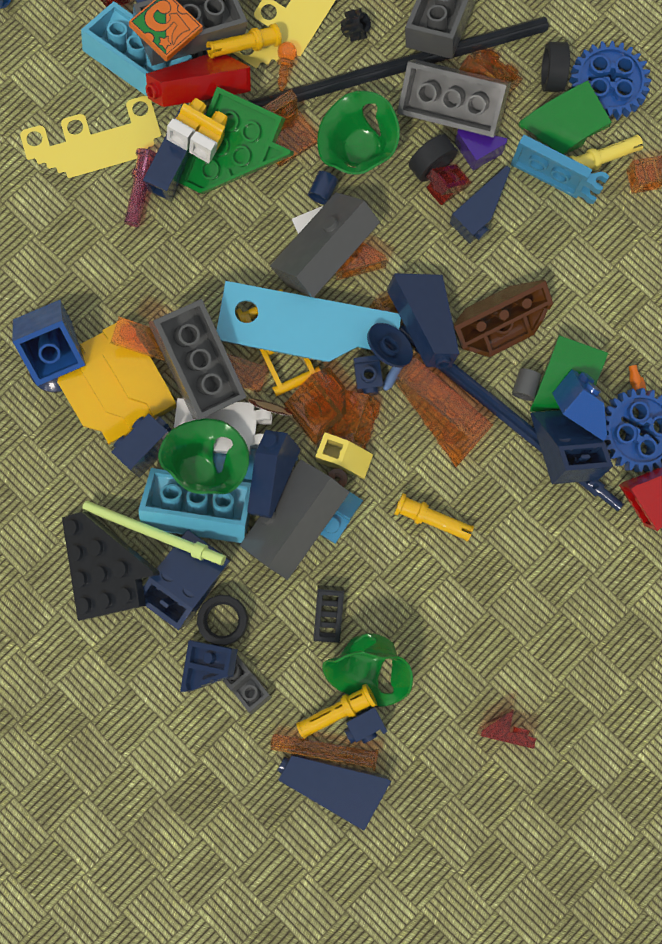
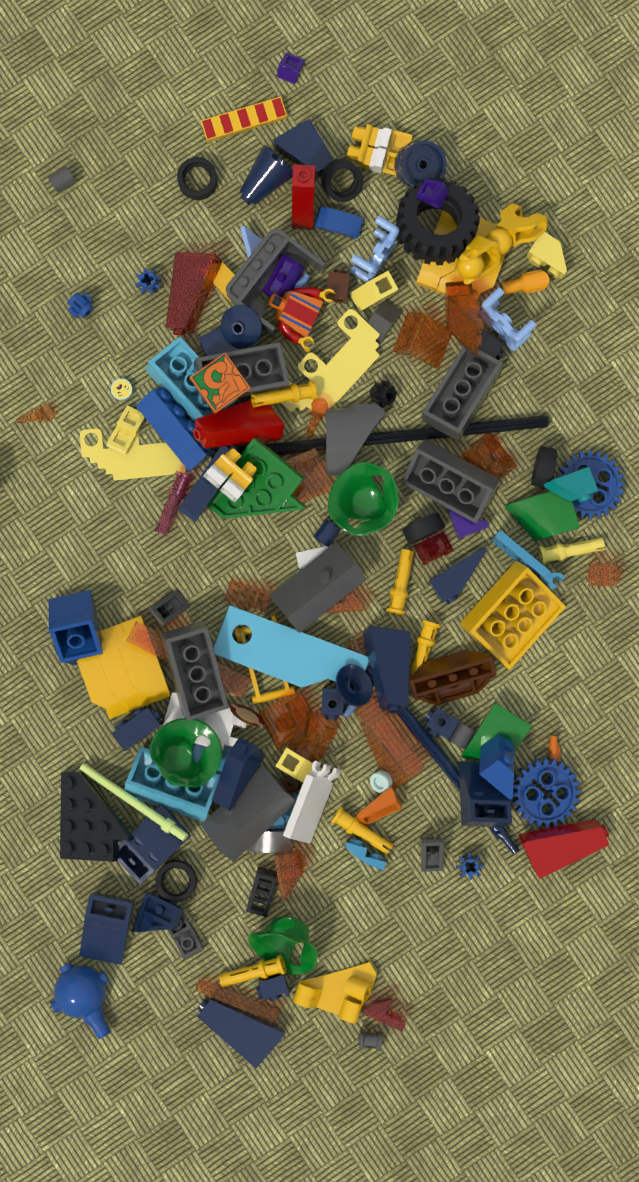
camera: 10 degrees right, 5 degrees up
(59, 77) = (121, 389): none -> light yellow tile
(72, 119) = (126, 430): none -> light yellow slope
(125, 101) = (174, 428): none -> blue brick
(131, 783) = (81, 994): none -> blue piece
(147, 693) = (106, 927): none -> dark blue slope
(155, 304) = (169, 608): none -> dark grey slope
(255, 266) = (264, 602): none -> clear orange slope
(324, 72) = (347, 433): none -> dark grey panel
(329, 549) = (271, 842): none -> dark grey slope
(356, 578) = (289, 870): none -> clear orange slope
(366, 493) = (310, 803): none -> white tile
(419, 237) = (399, 592): none -> yellow pin
(435, 541) = (359, 850): none -> dark azure slope
(444, 455) = (381, 781): none -> light aqua tile
(445, 717) = (338, 992): none -> yellow panel
(449, 485) = (382, 806): none -> orange slope
(461, 287) = (425, 643): none -> yellow pin
(496, 768) = (370, 1040): none -> dark grey bush
(499, 374) = (440, 723): none -> dark blue brick
(522, 527) = (431, 853): none -> dark grey slope
(555, 236) = (512, 614): none -> yellow slope
(562, 534) = (469, 872): none -> blue gear
(595, 73) = (574, 485): none -> teal slope

